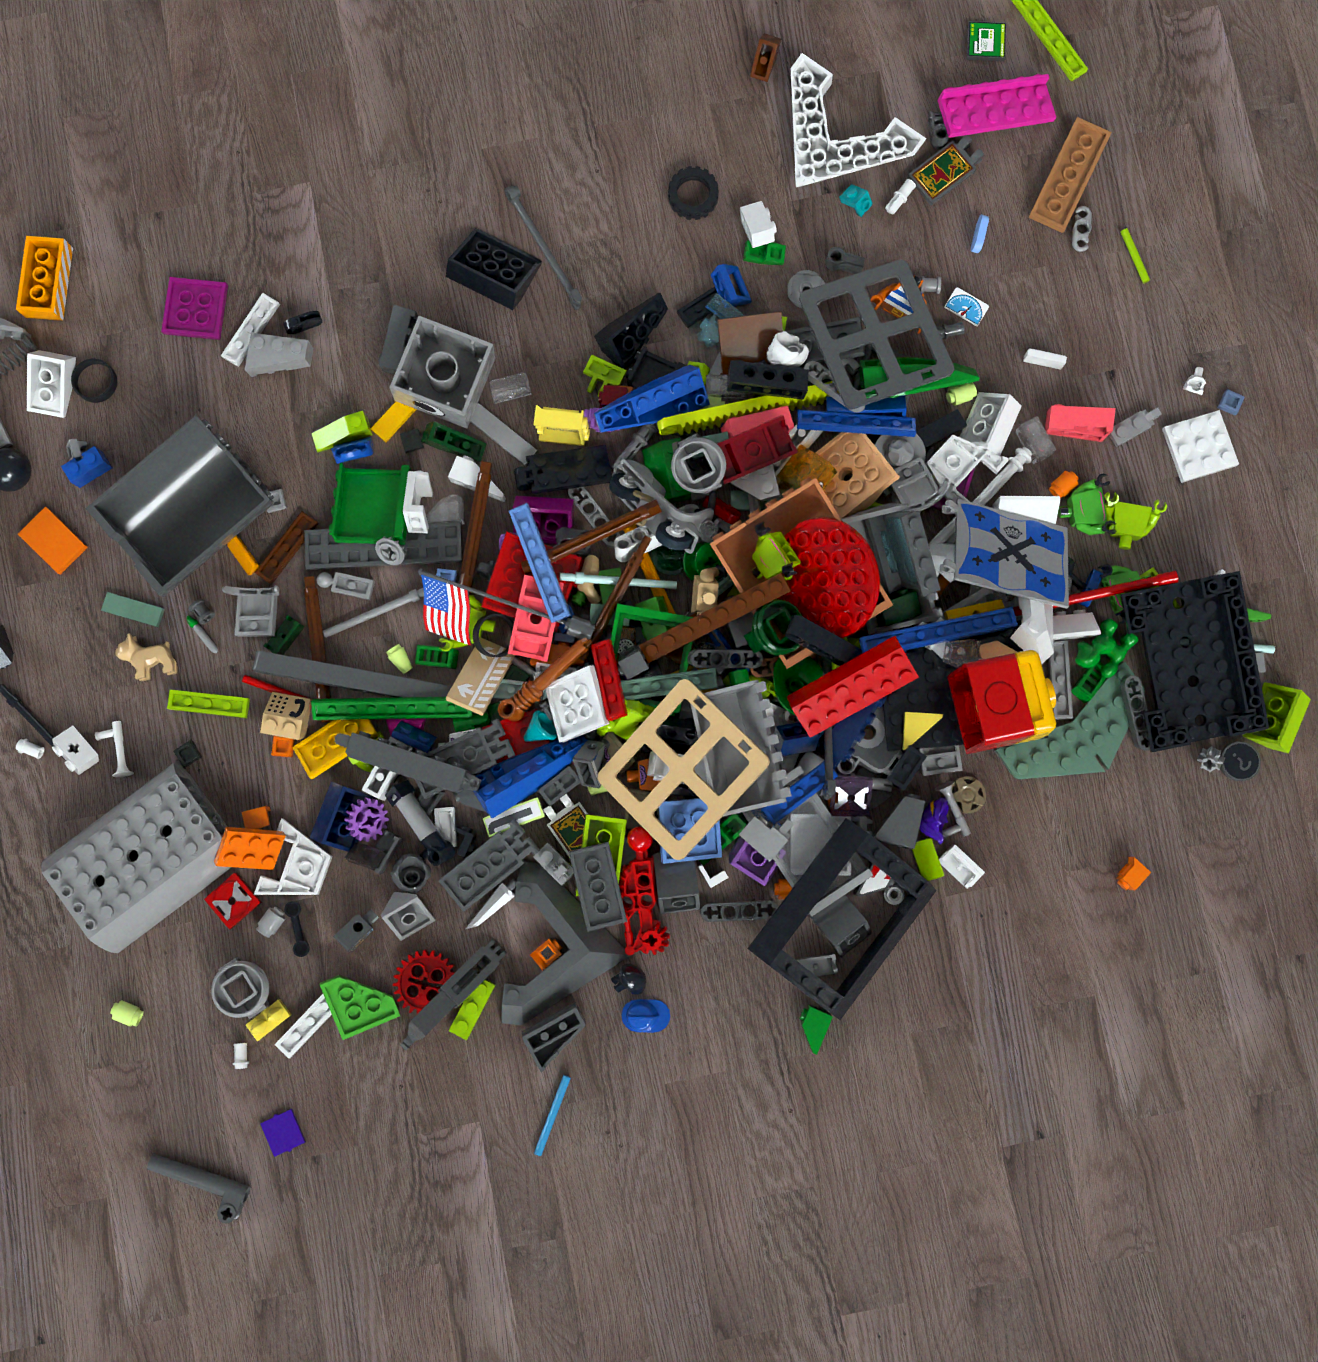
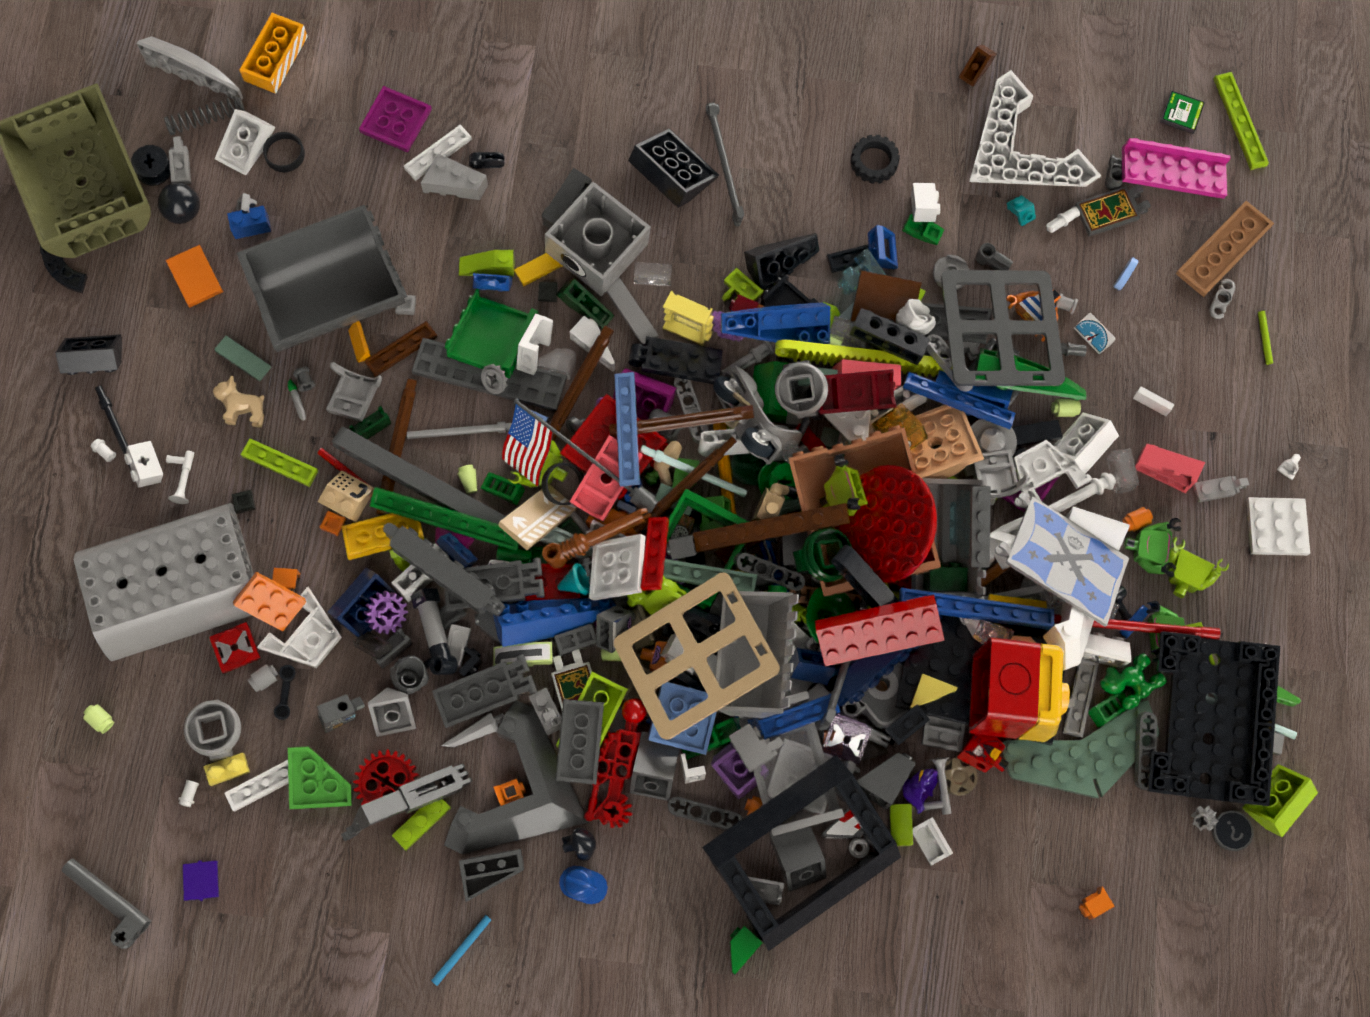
camera: 10 degrees right, 10 degrees down
(347, 584) = (444, 398): light grey plate -> none
(985, 766) = (983, 753): none -> red torso
(1231, 402) = (1318, 495): sand blue tile -> none

